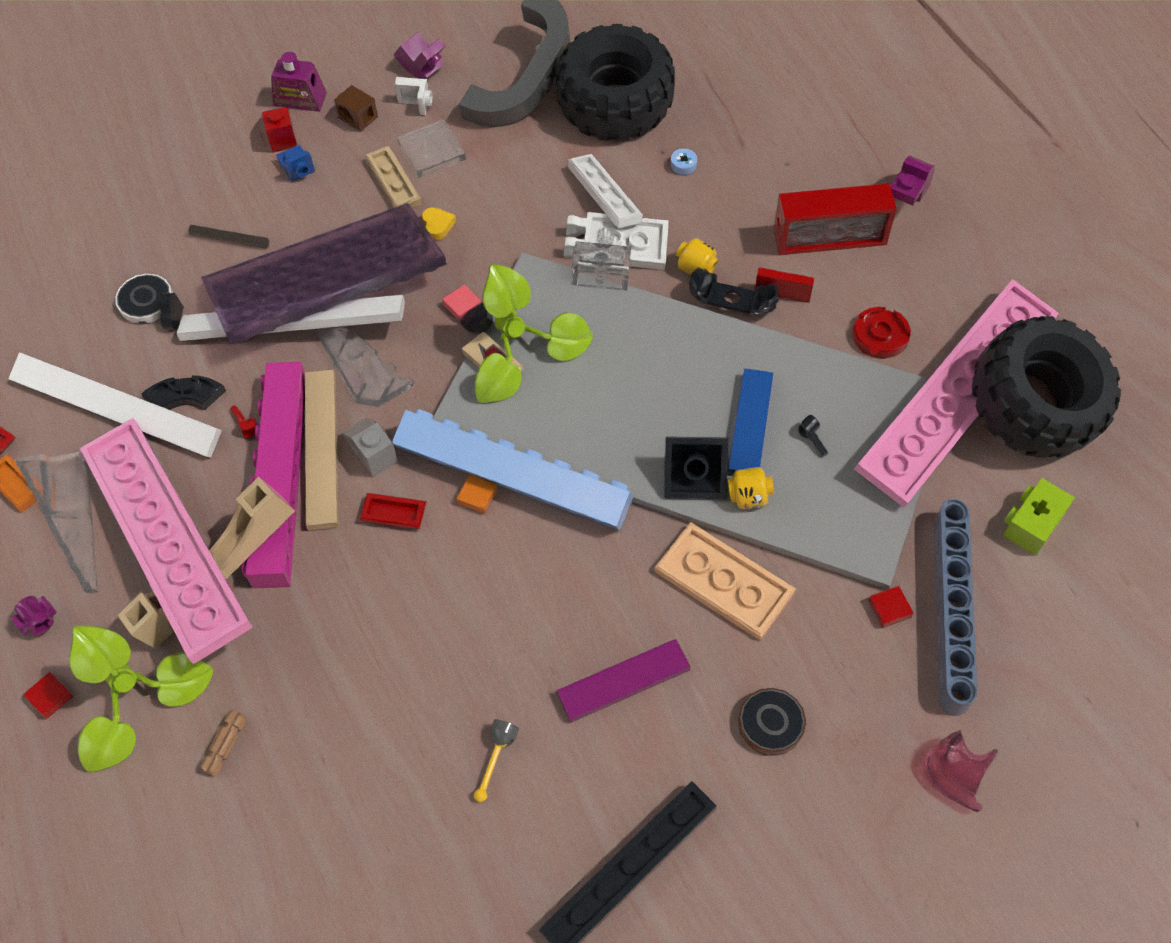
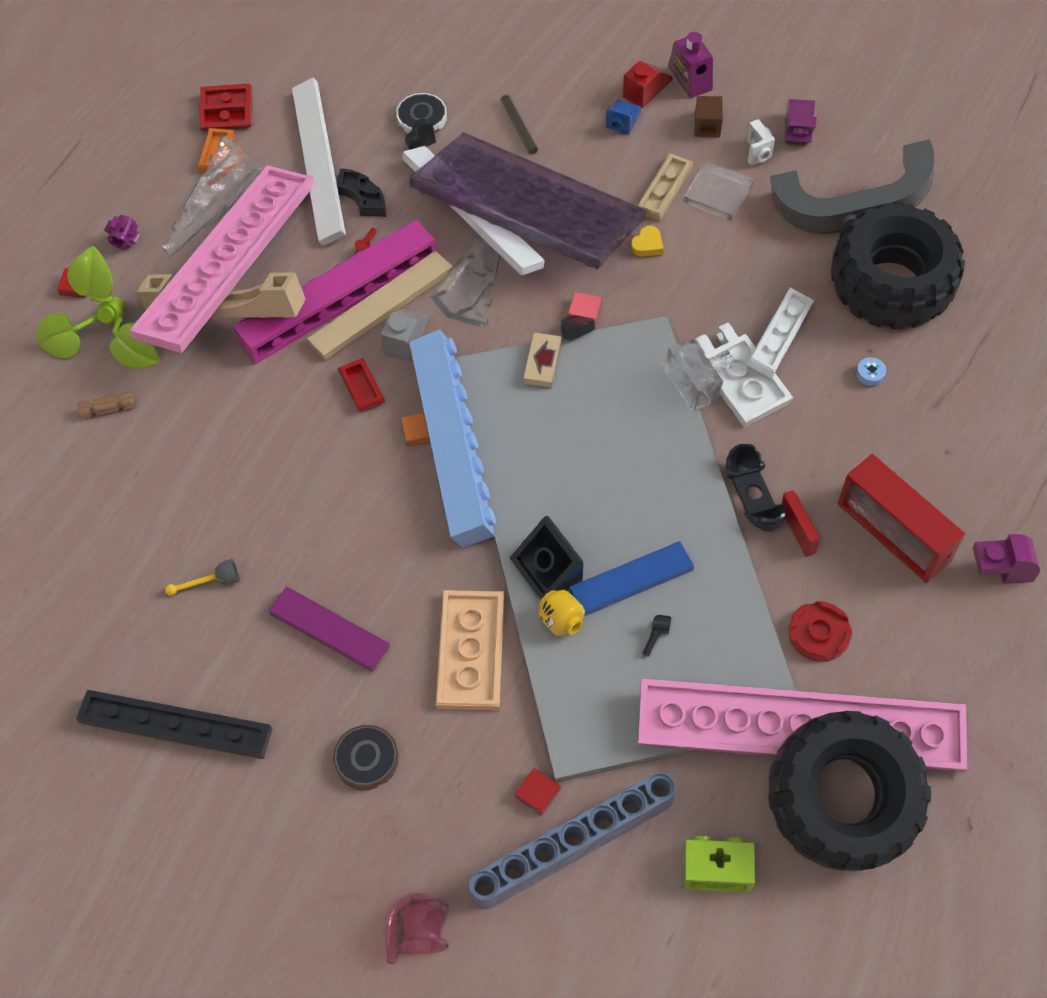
camera: 55 degrees right, 0 degrees up
(501, 297) = (580, 317): lime plant -> none
(695, 255) = (770, 440): yellow head -> none

